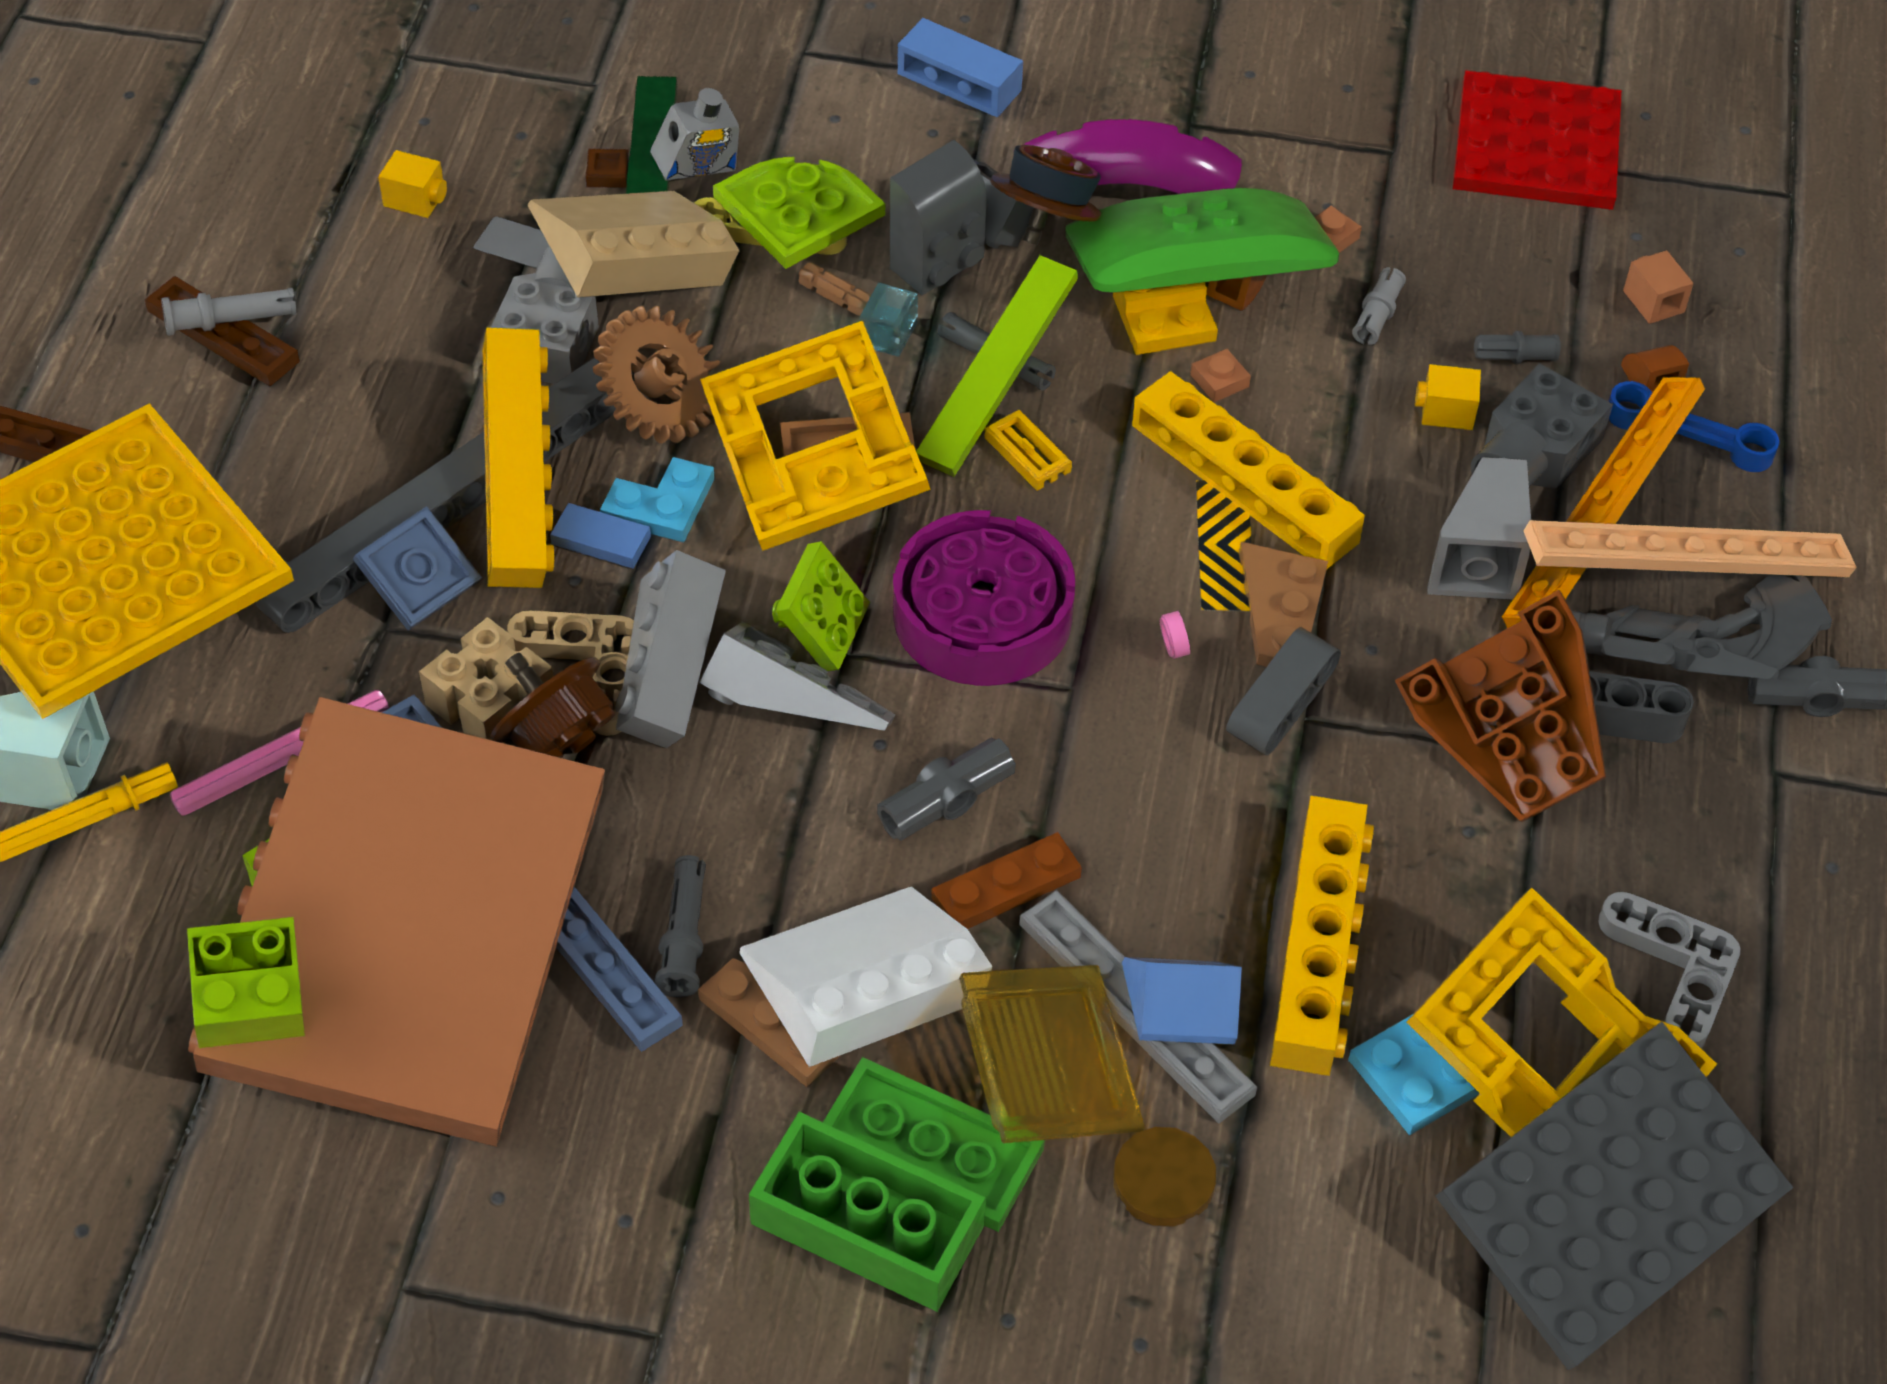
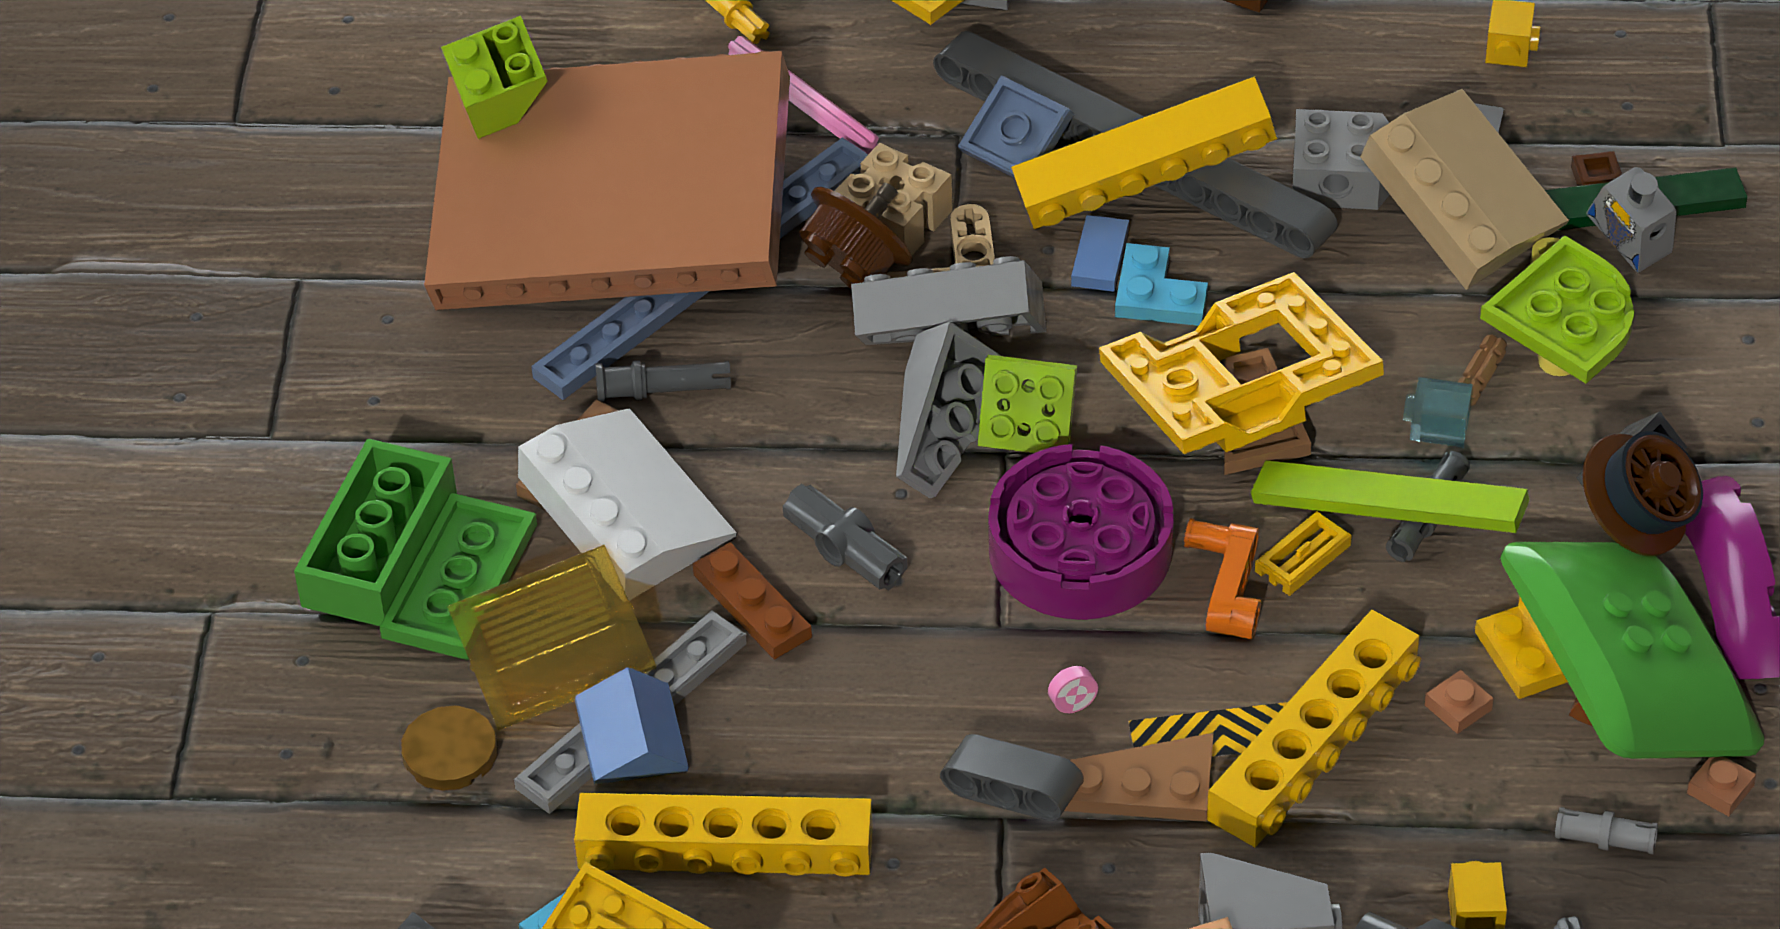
camera: 85 degrees right, 5 degrees down
(669, 371) = (1293, 199): medium nougat gear -> none
(937, 218) = (1562, 402): dark grey brick -> none
(1060, 498) = (1228, 609): none -> orange beam

